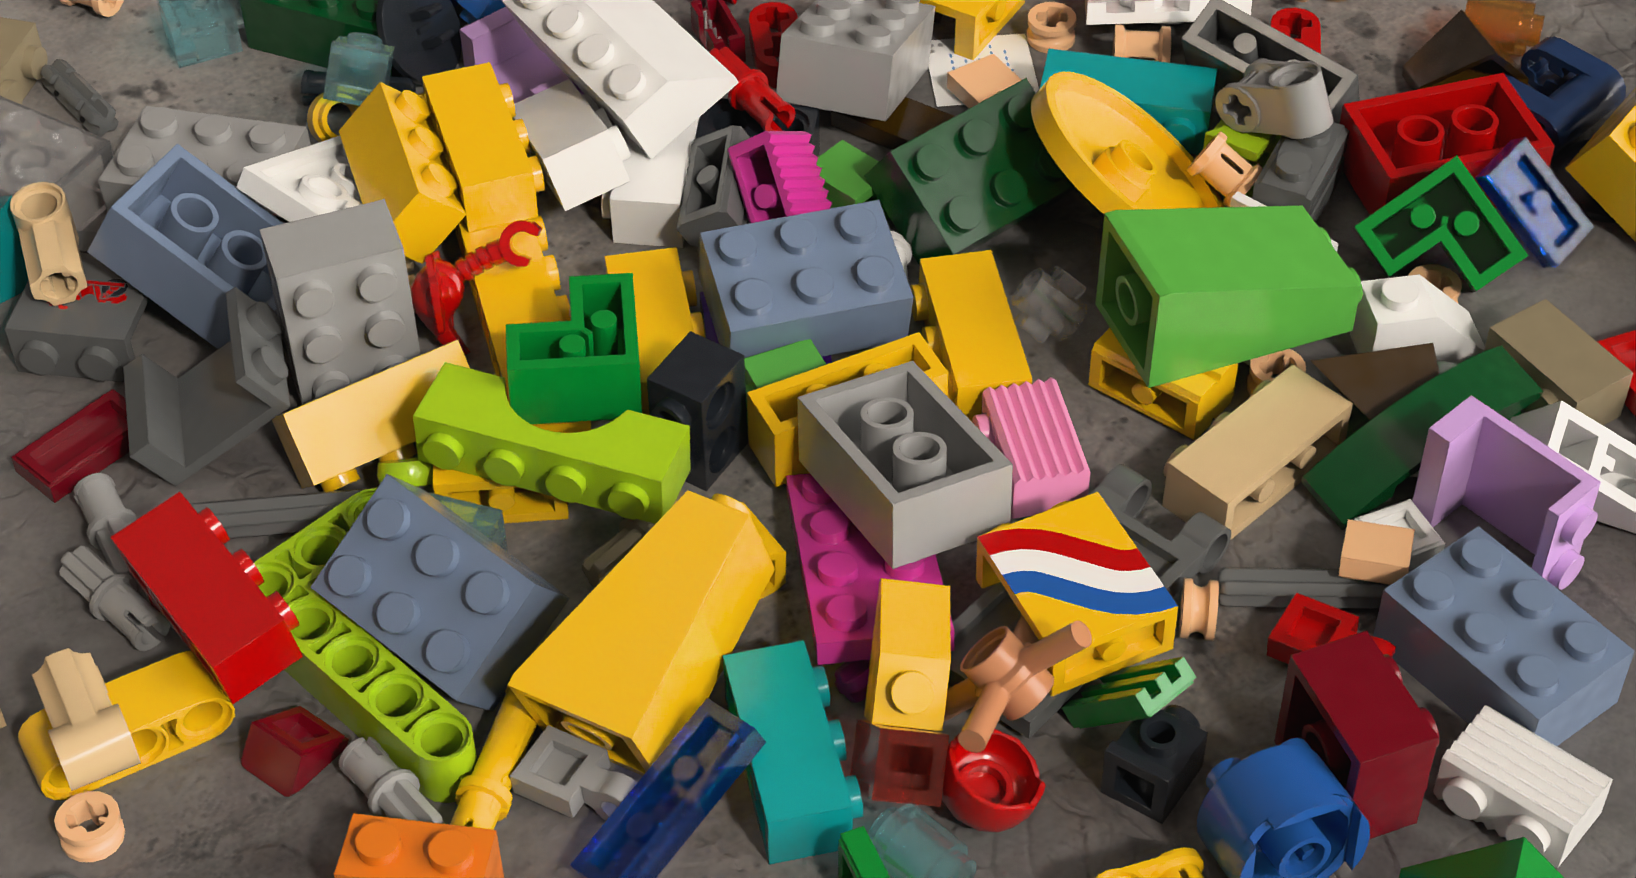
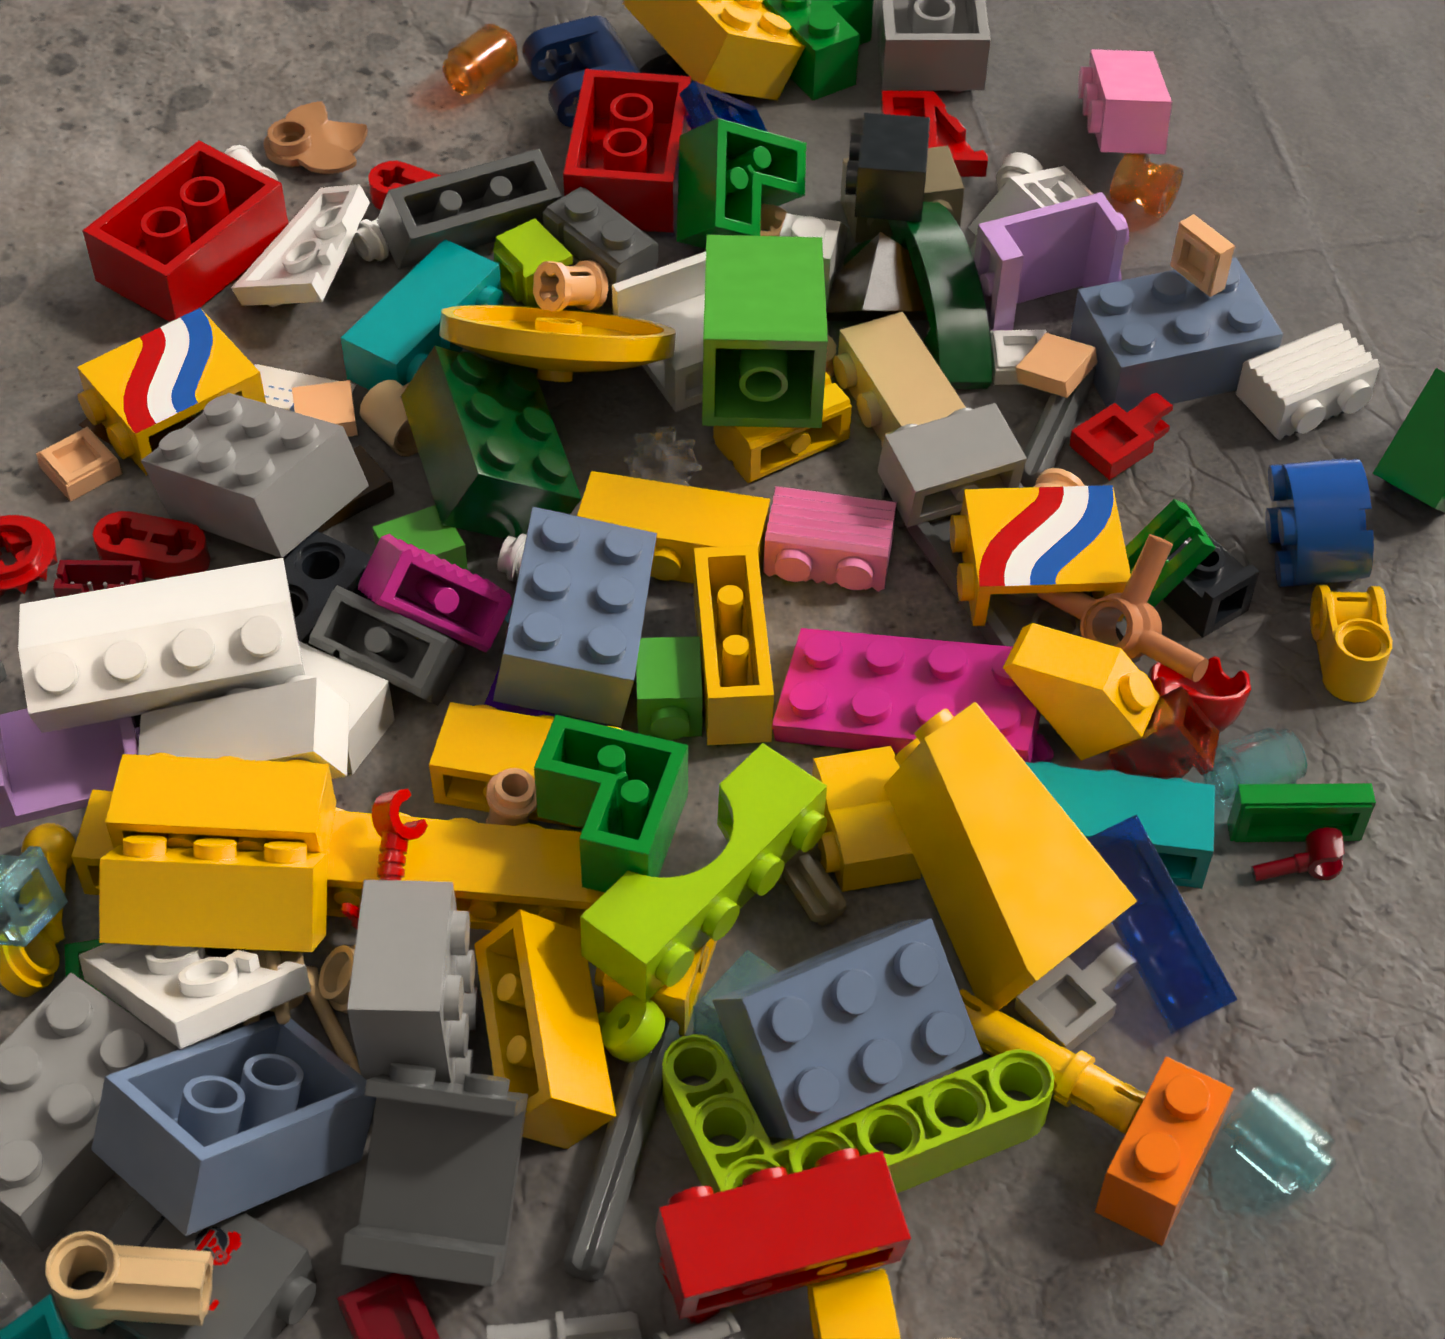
camera: 70 degrees left, 5 degrees up
(290, 749) = (945, 1239): dark red slope -> none
(388, 788) = (1042, 1154): light grey axle -> none
(704, 389) = (696, 717): black brick -> none
(754, 93) = (301, 561): red axle -> none
(904, 463) = (865, 609): light grey brick -> none
(1051, 27) = (270, 326): light nougat bush -> none
(1142, 44) = (357, 286): light nougat bush -> none
(1150, 485) = (937, 460): none -> light grey brick
(1277, 100) = (547, 201): light grey piece -> none
(1363, 726) = (1242, 430): dark red brick -> none
(1458, 54) = (514, 99): dark brown slope -> none
(1525, 317) = (889, 167): none -> black brick
(1567, 592) = (1202, 255): none -> light nougat tile

